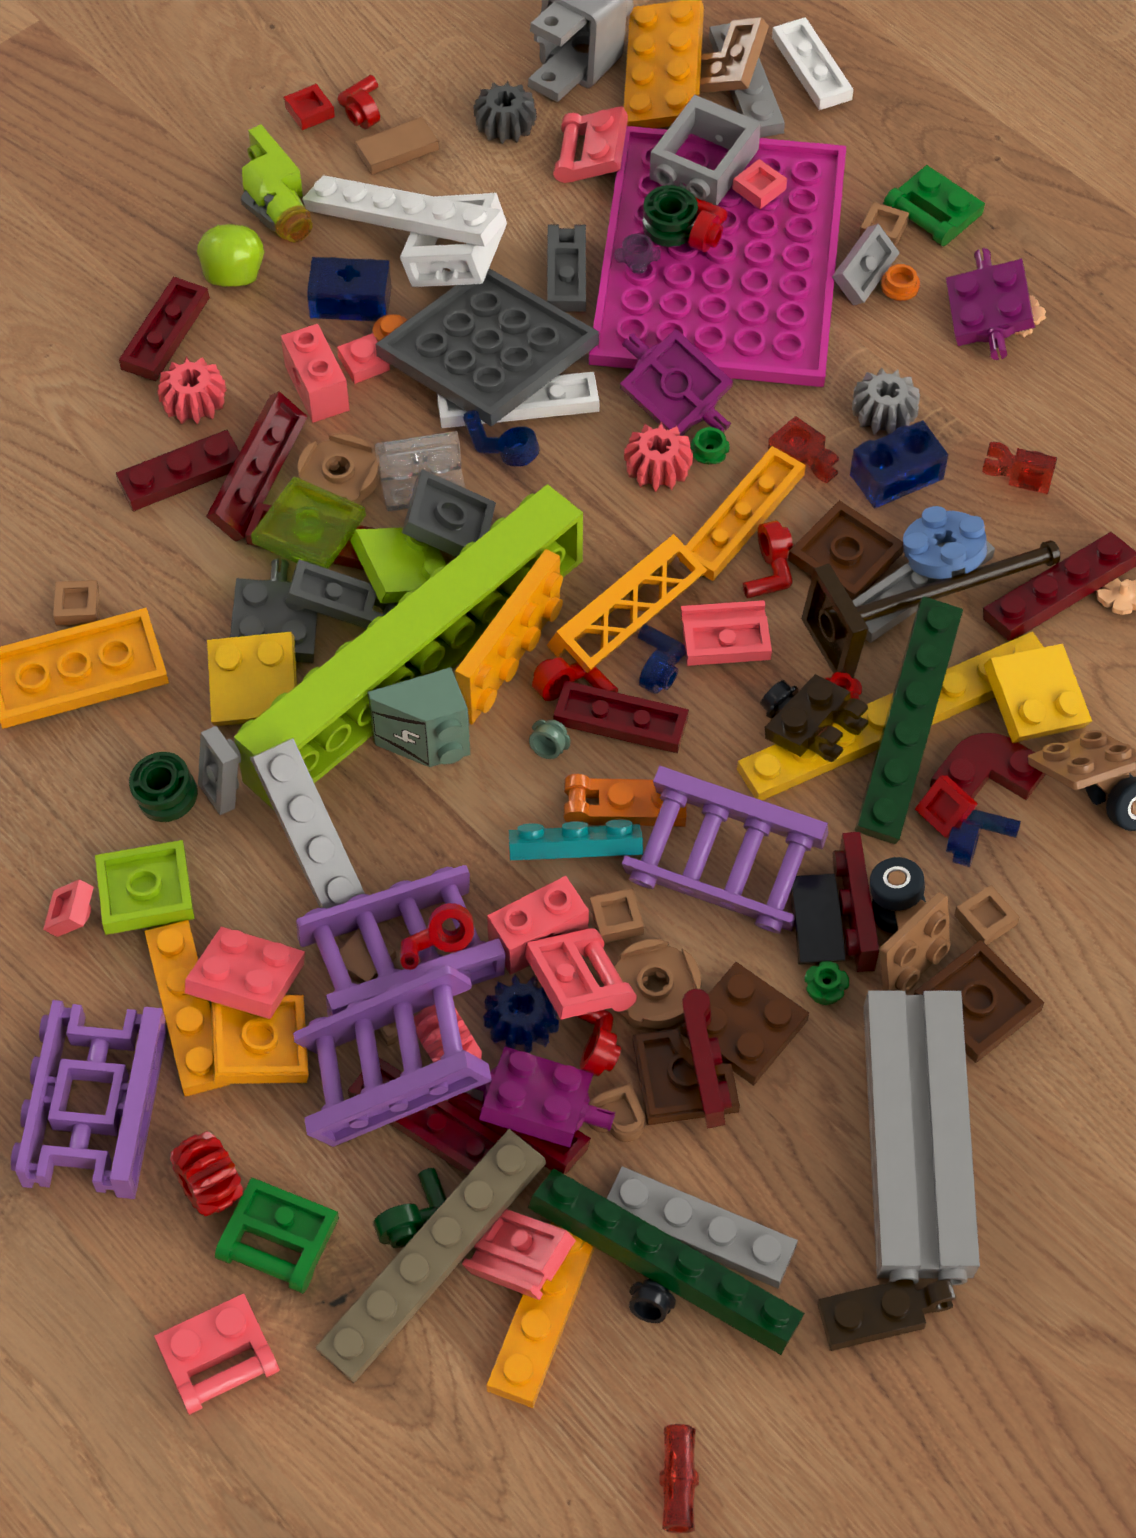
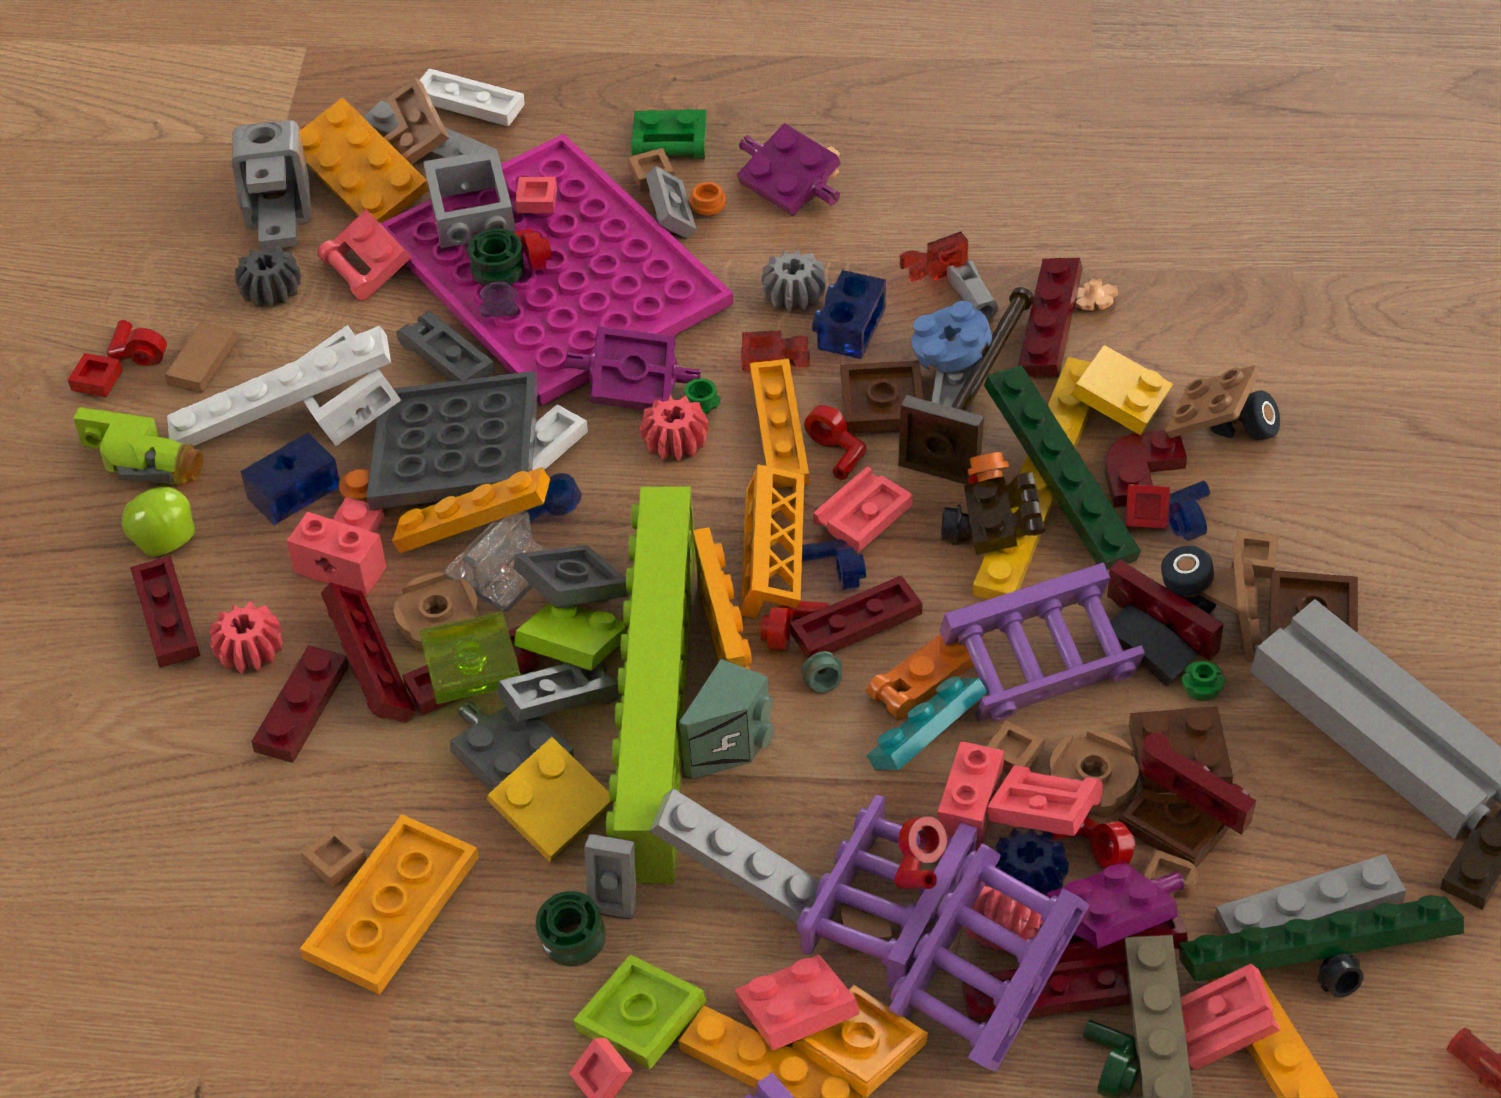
camera: 40 degrees left, 10 degrees down
(430, 410) = (471, 510): none -> light orange plate
(844, 673) = (988, 466): none -> orange plate
(1022, 517) = (971, 288): none -> light grey bar

